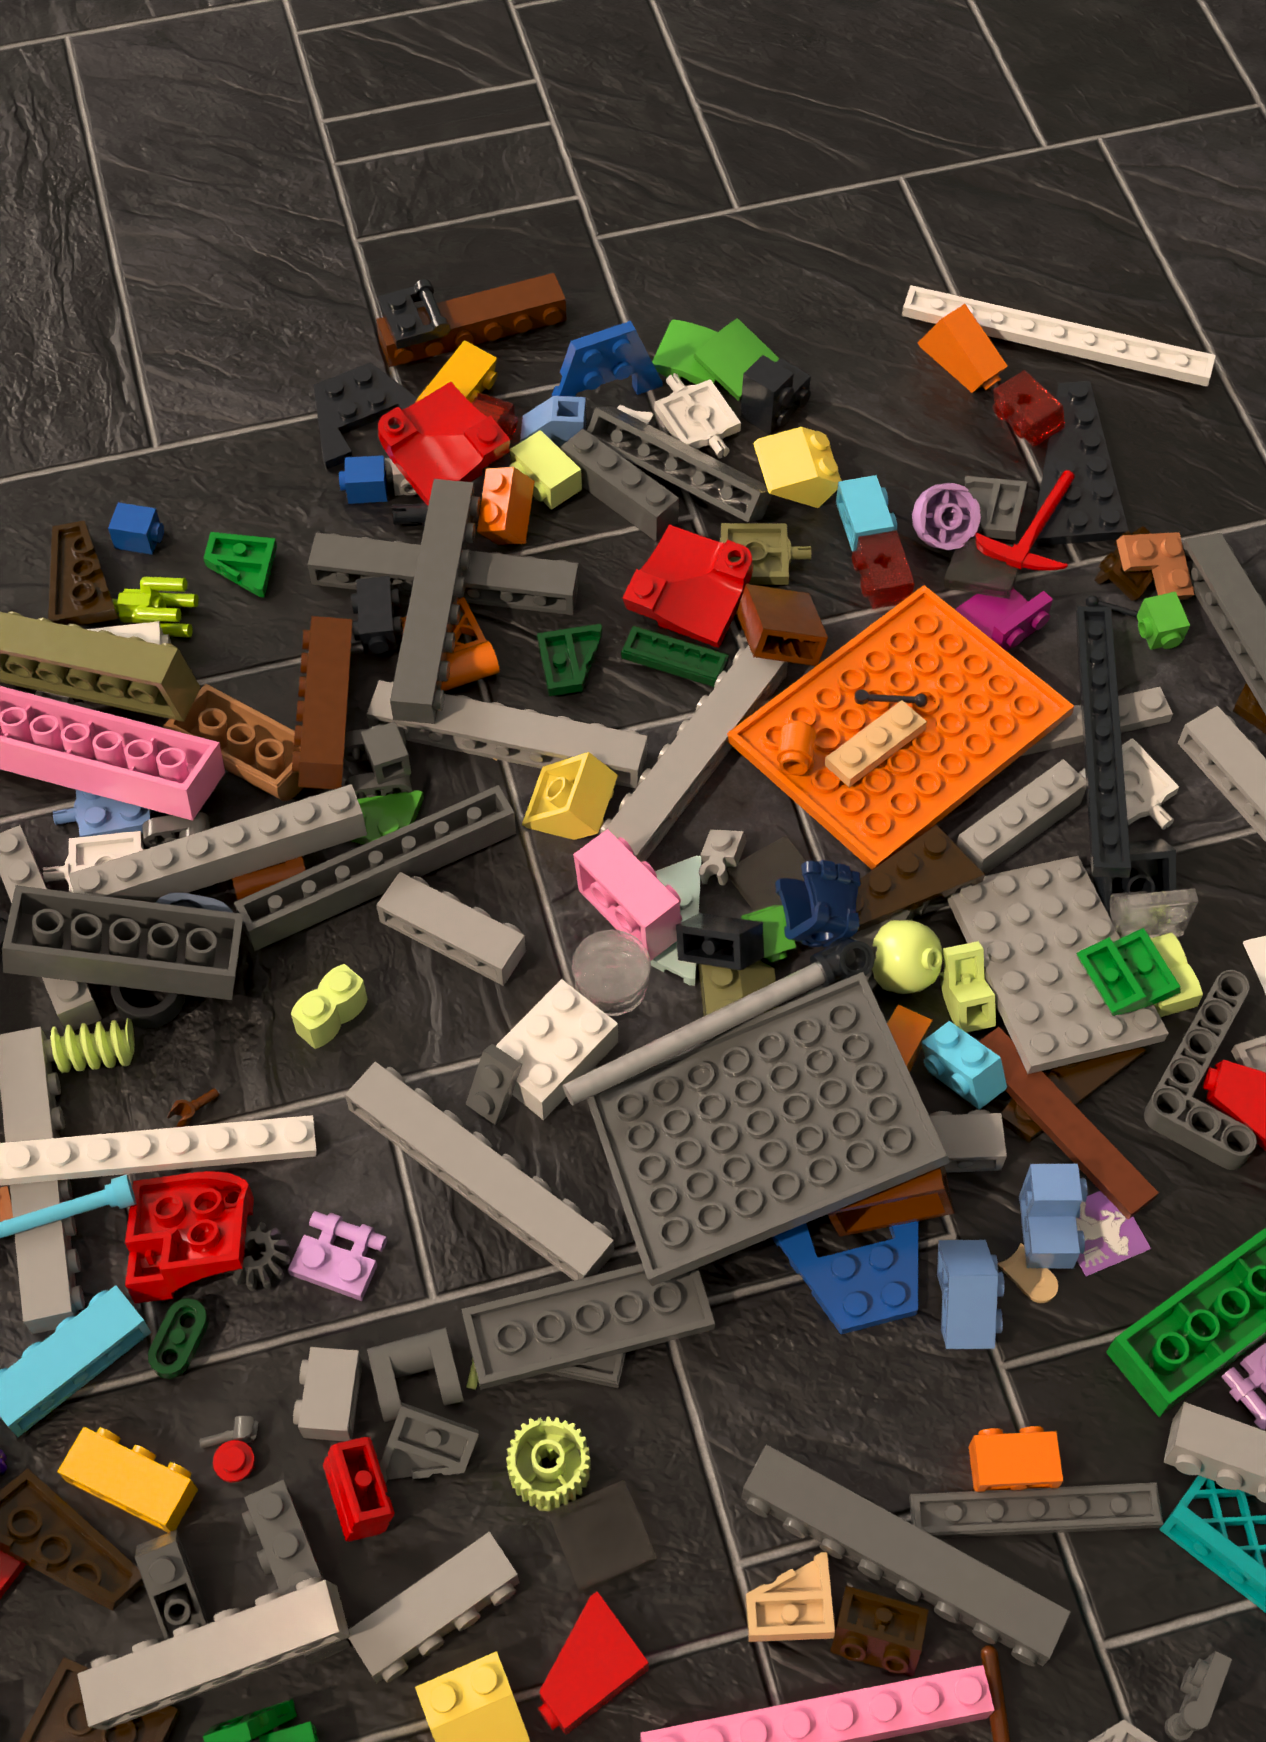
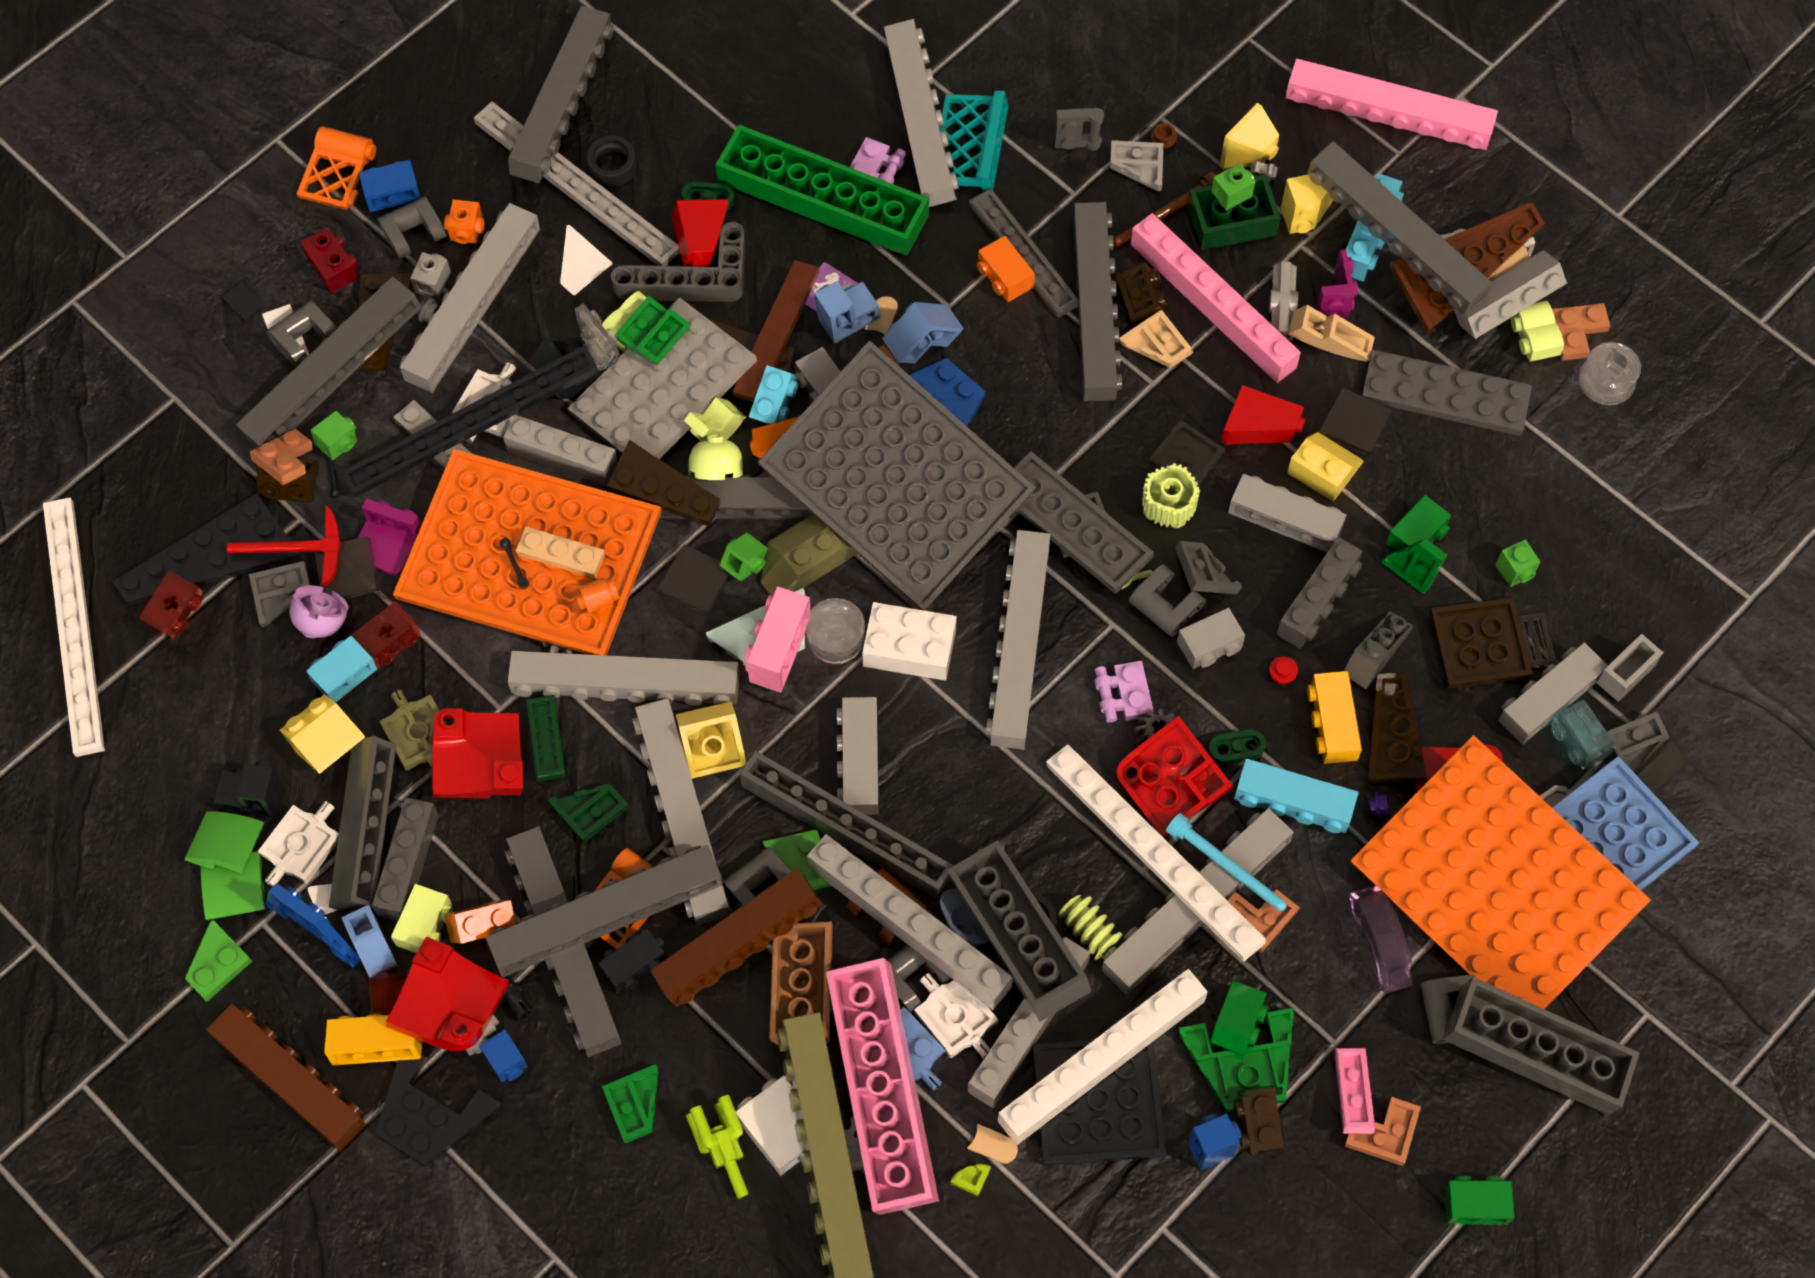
camera: 120 degrees left, 5 degrees up
(76, 579) = (734, 1205): dark brown wing -> none
(135, 528) = (651, 1204): blue brick -> none
(187, 1109) = (1092, 840): reddish brown hand -> none
(212, 1654) = (1397, 590): light grey brick -> none
(244, 1430) = (1264, 676): dark grey hand -> none
(335, 1002) = (972, 795): yellowish green brick -> none
(358, 1488) = (1254, 585): red brick -> none
(386, 752) = (758, 864): dark grey brick -> none
(404, 319) = (324, 1117): black plate -> none
(493, 1084) = (960, 655): dark grey plate -> none
(619, 307) = (215, 962): none -> bright green wing
(720, 941) = (776, 566): black brick -> none
(721, 851) = (695, 621): light grey plate -> none
(781, 625) = (486, 667): reddish brown brick -> none
(821, 905) = (714, 534): dark blue piece -> none
(825, 970) = (748, 487): flat silver piece -> none
(964, 350) = (129, 680): orange slope -> none

